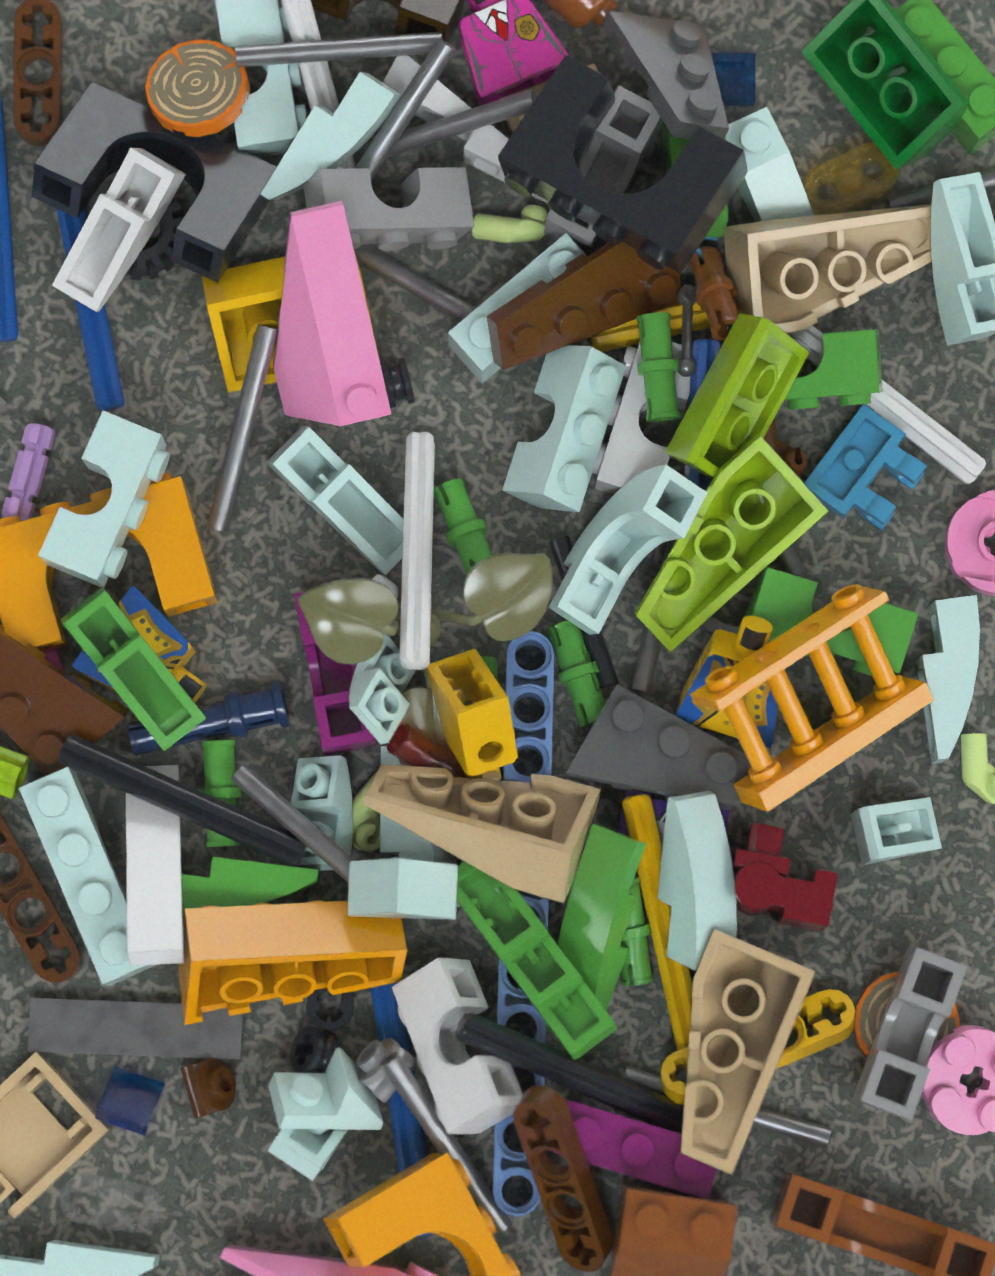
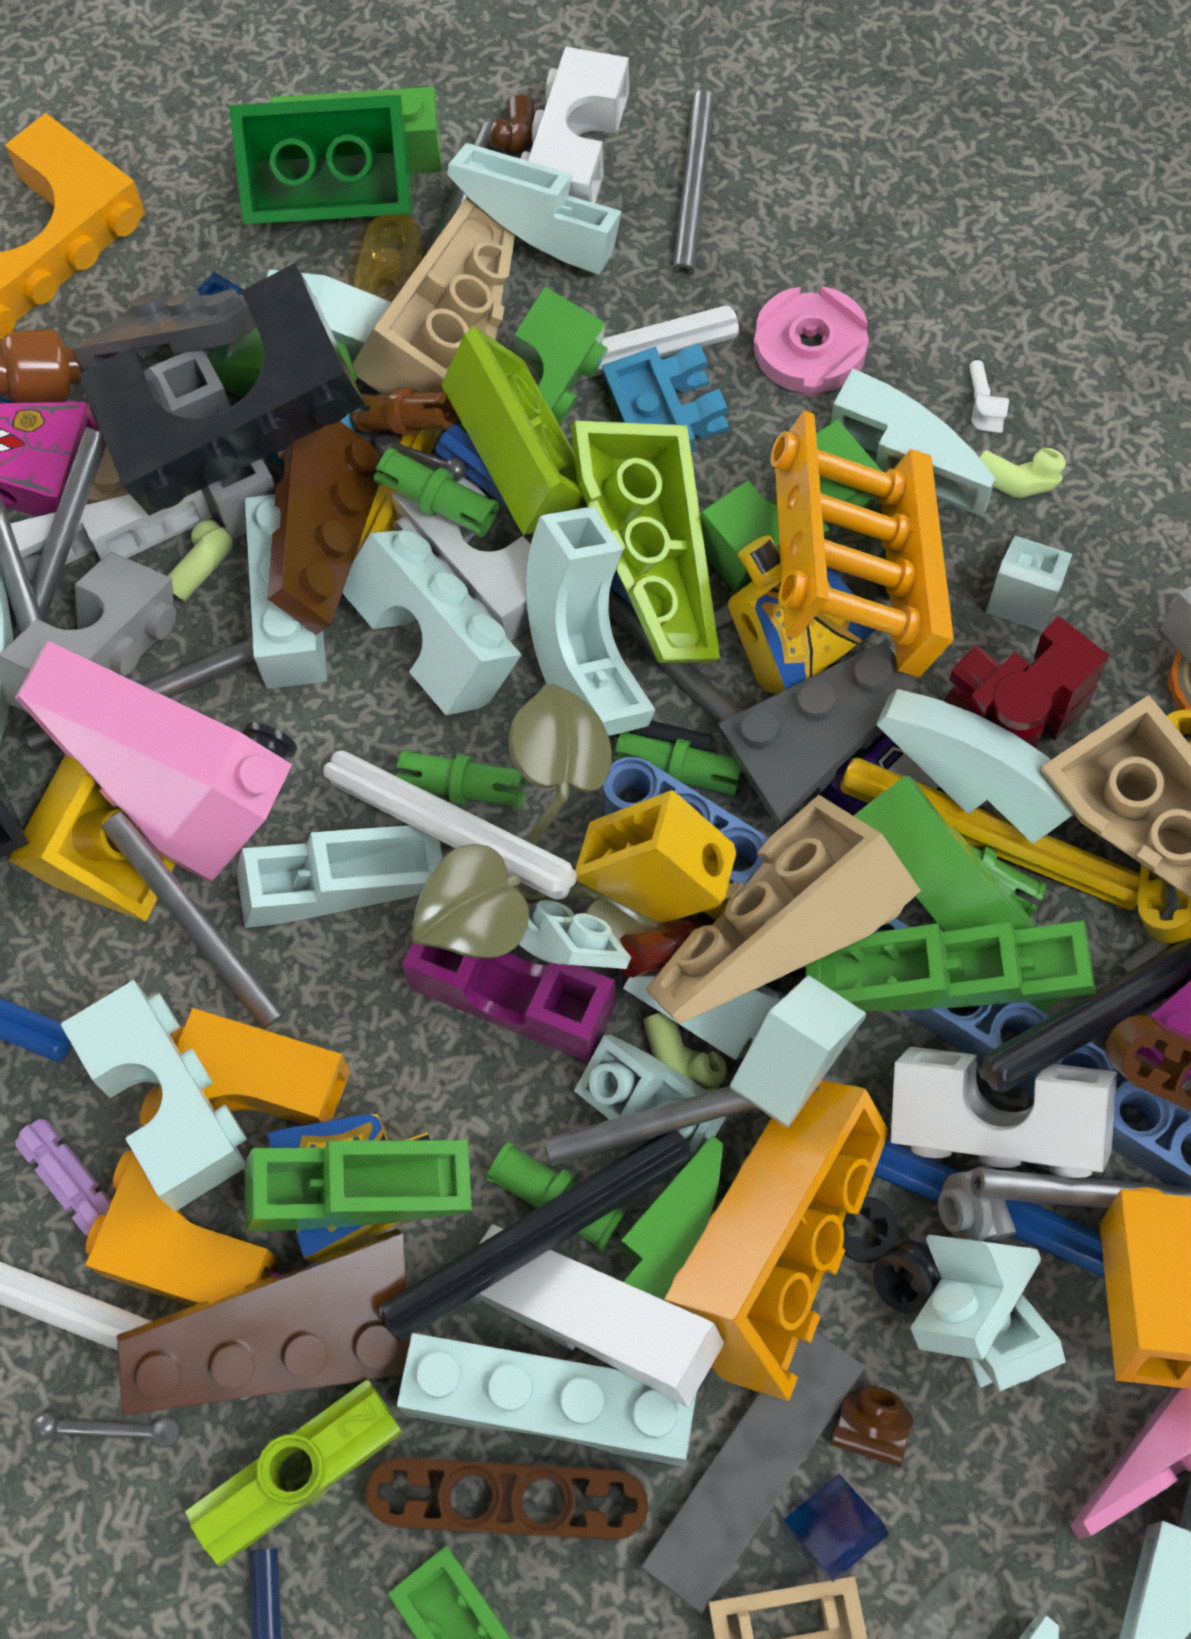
camera: 50 degrees left, 15 degrees down
(233, 715) = (484, 1124): dark blue pin -> none

